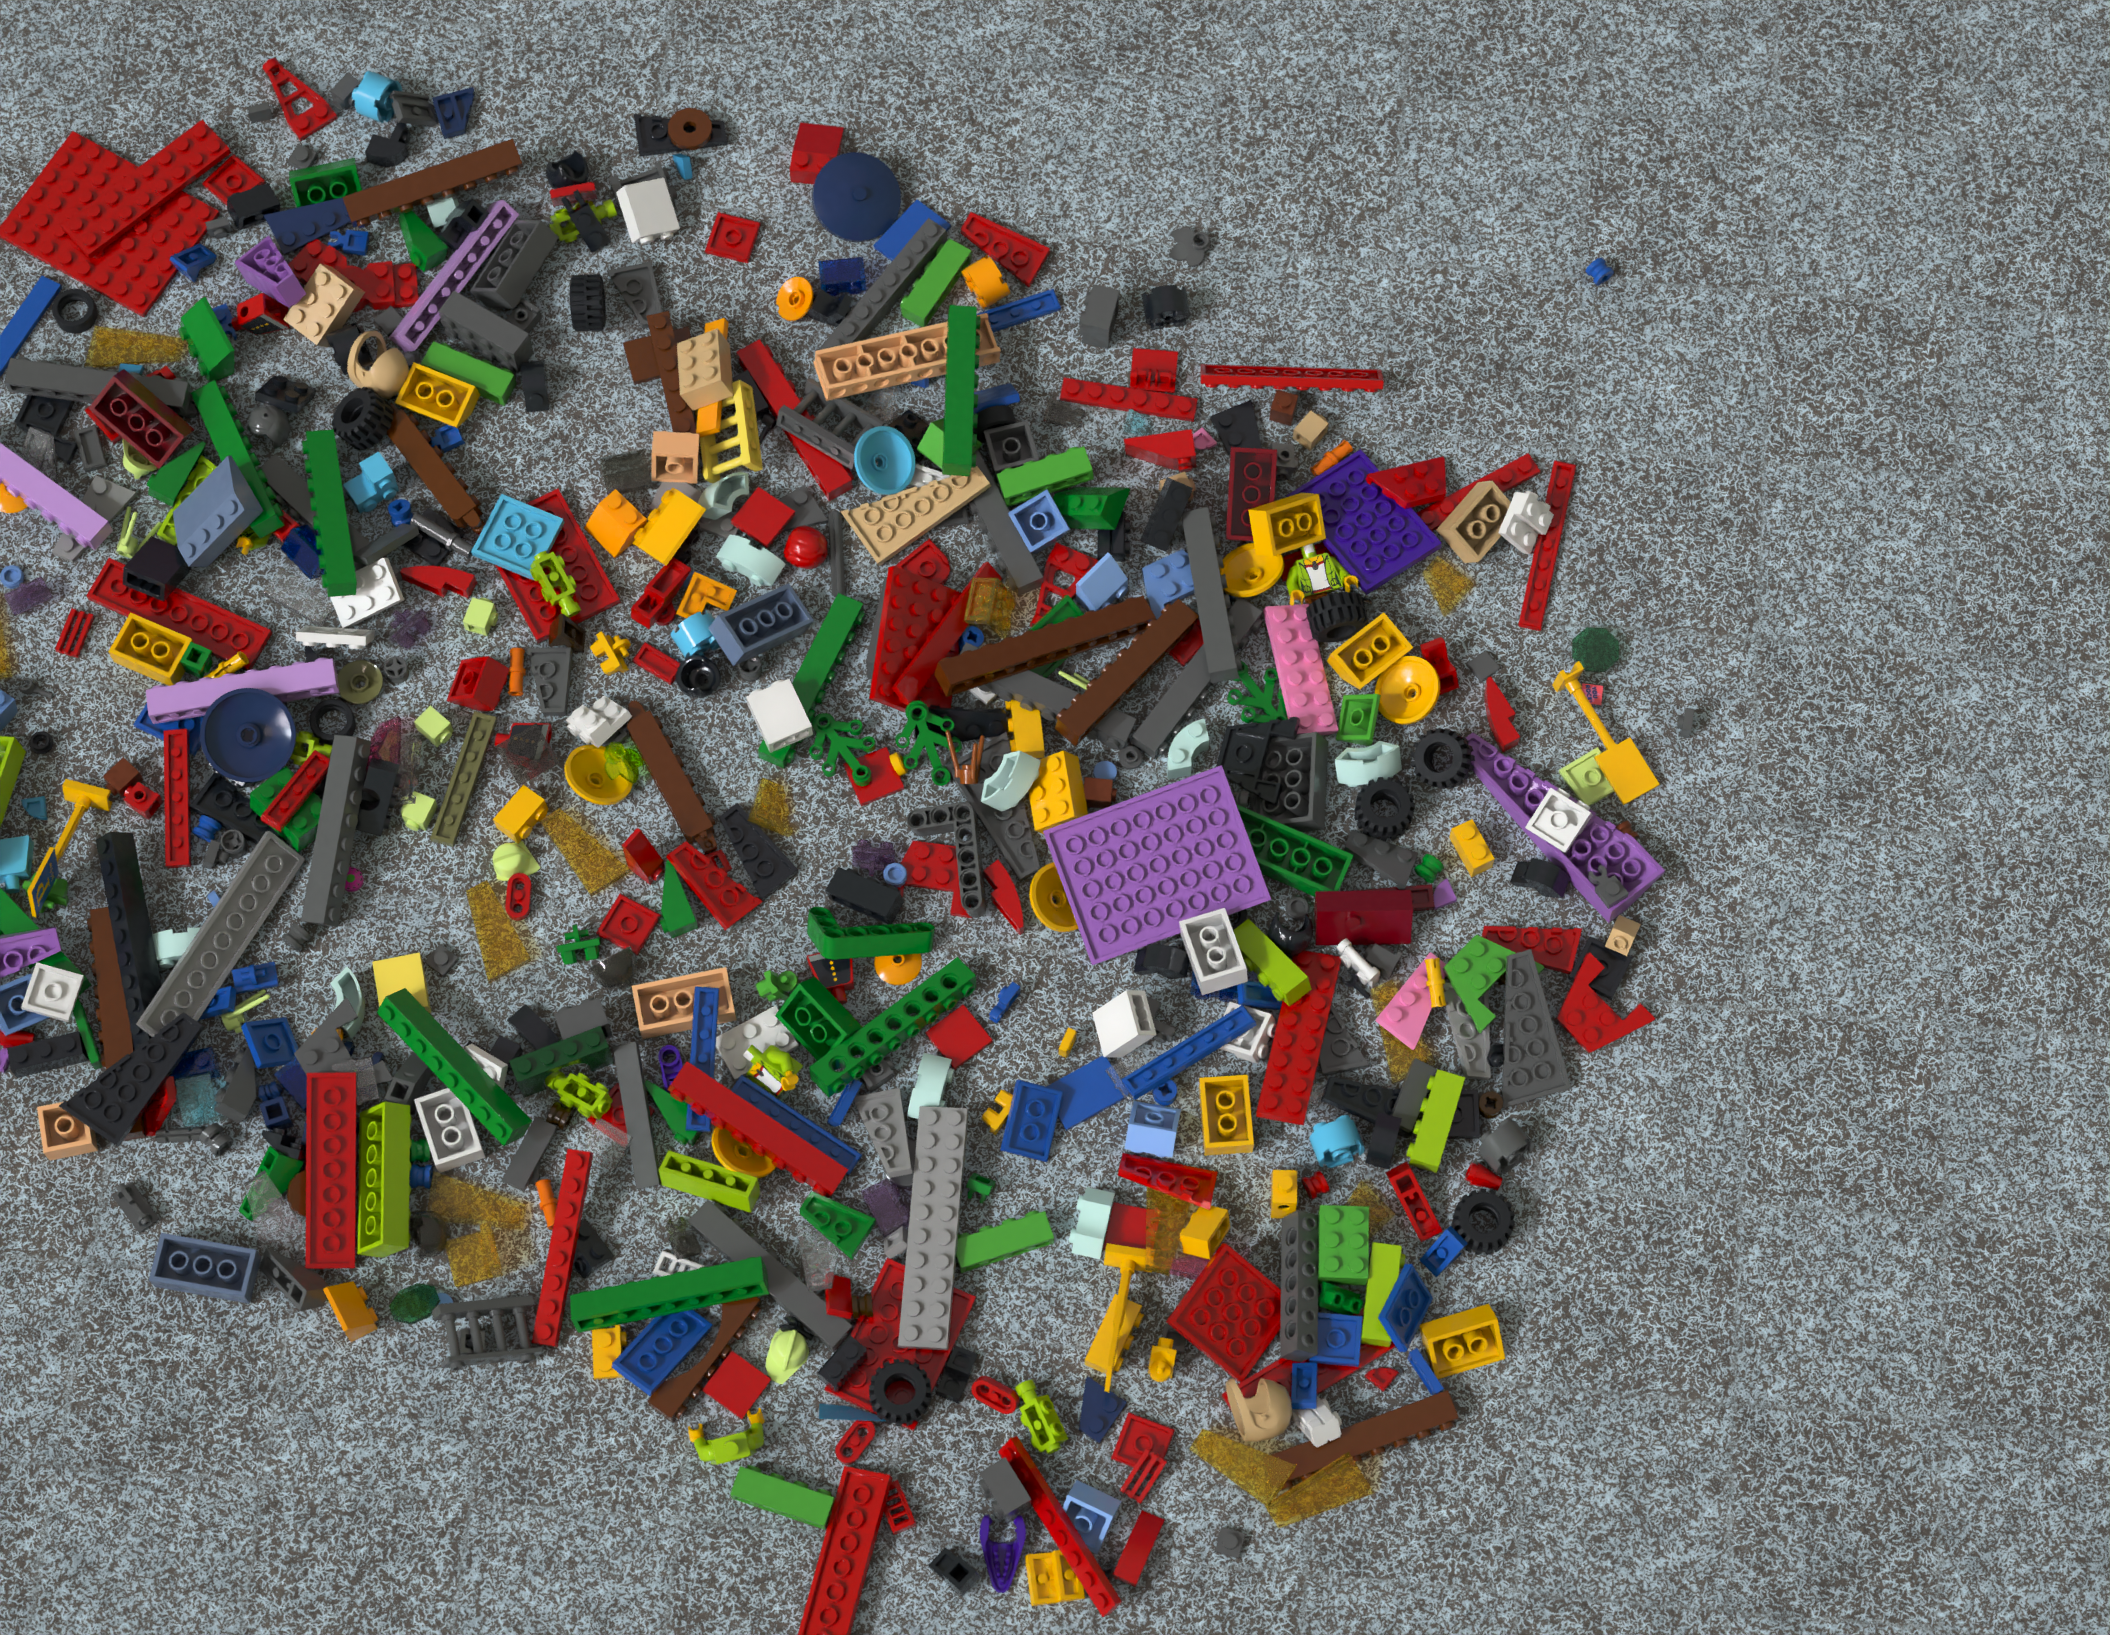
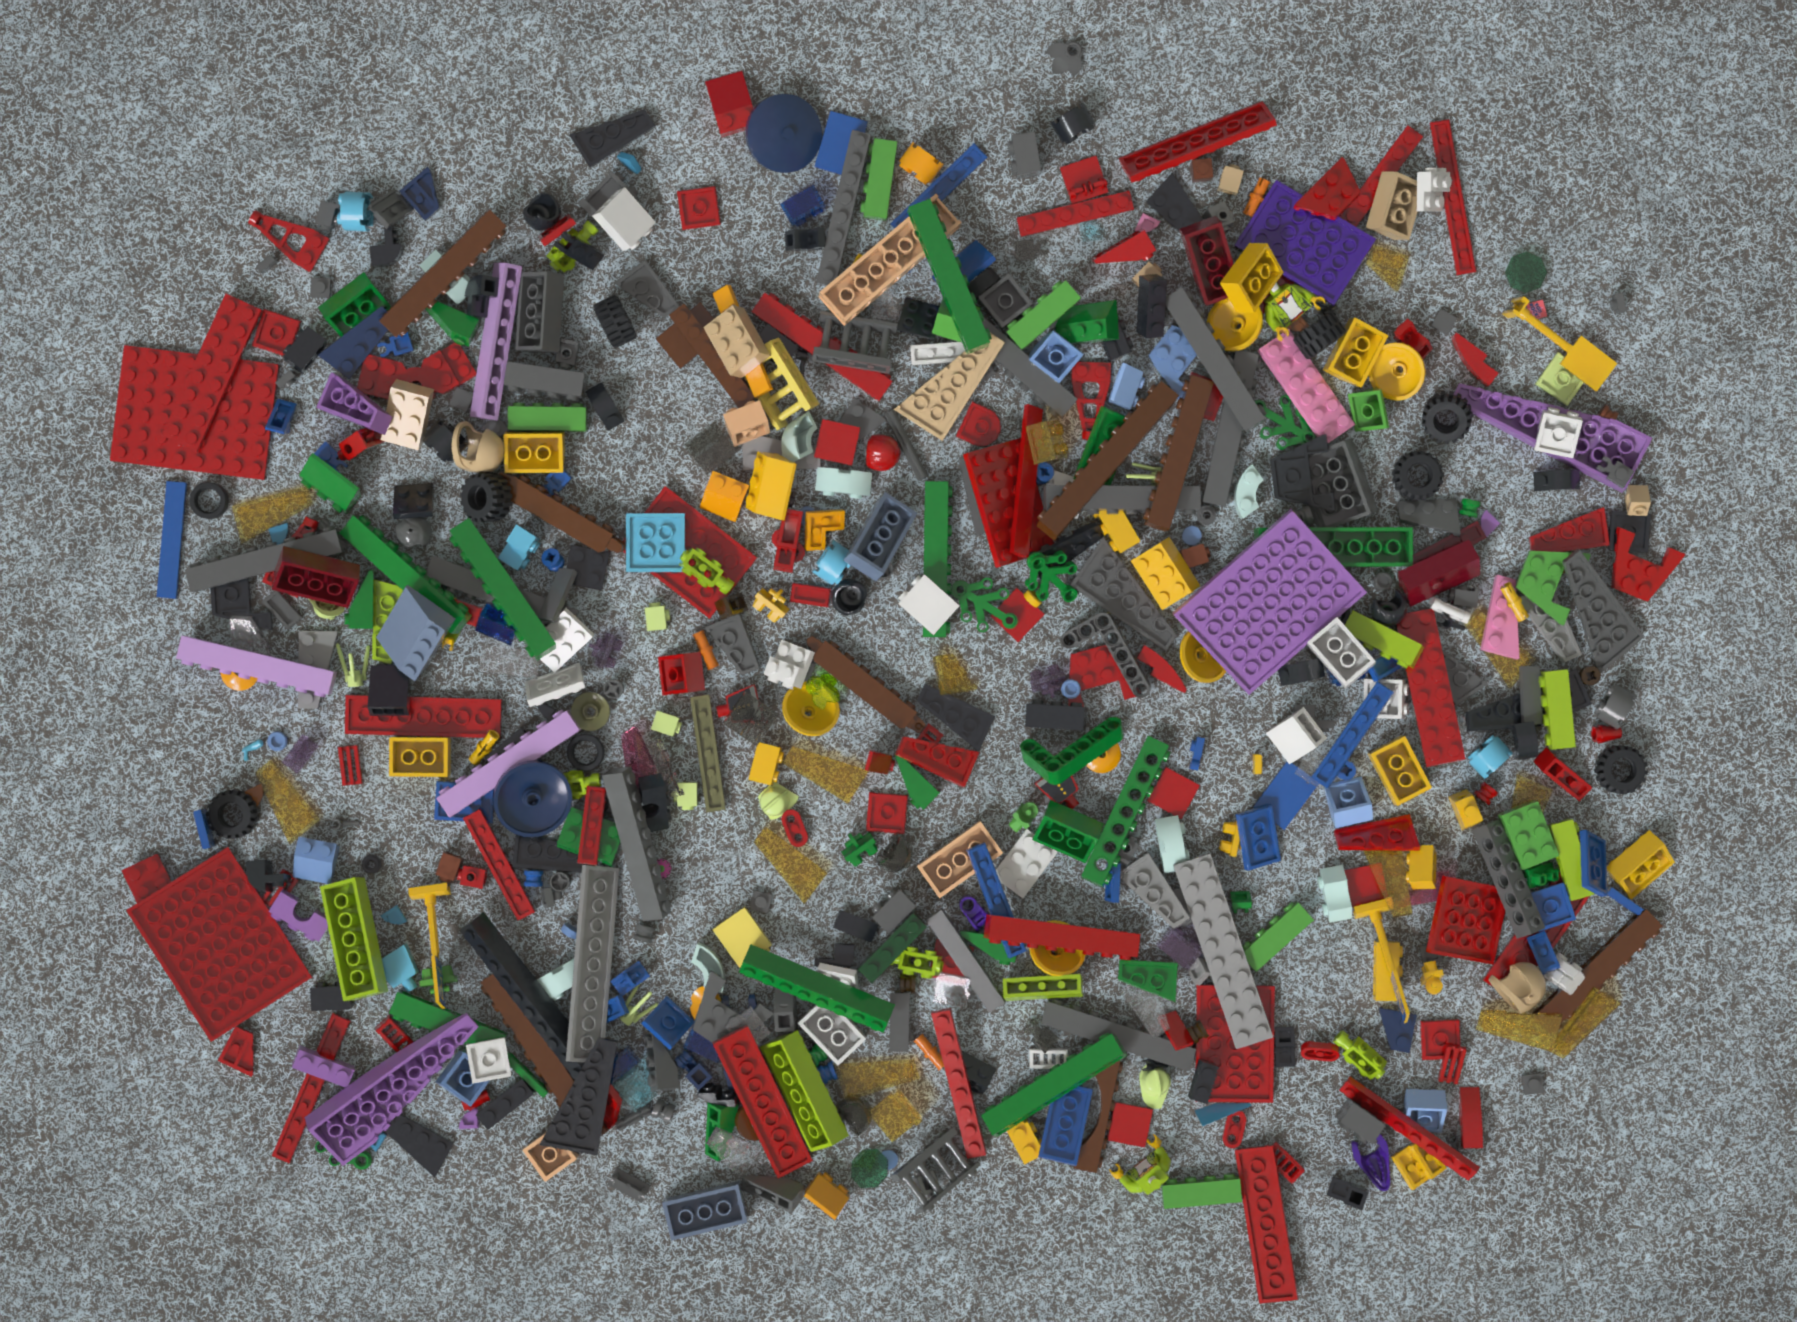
camera: 25 degrees left, 20 degrees up
(200, 661) = (458, 750): green brick -> none
(440, 579) = (610, 601): red slope -> none
(451, 540) = (596, 566): dark grey pin -> none
(685, 118) = (617, 118): reddish brown tile -> none
(772, 1069) = (1053, 888): torso -> none
(794, 298) = (767, 242): light orange dish -> none
(797, 1123) = (1084, 916): blue tile -> none
(894, 460) = (913, 357): medium azure dish -> none
(900, 1372) = (1271, 1084): black tyre -> none
(969, 772) = (1092, 585): dark orange plant -> none
(1009, 249) = (923, 123): red wing -> none
(1010, 781) = (1129, 583): light aqua brick -> none
(1361, 765) = (1392, 445): light aqua brick -> none
(1381, 1377) = (1591, 915): red tile -> none
(1443, 1251) = (1600, 804): blue slope -> none
(1471, 848) = (1496, 478): yellow brick -> none
(1495, 1055) = (1579, 639): black arm -> none

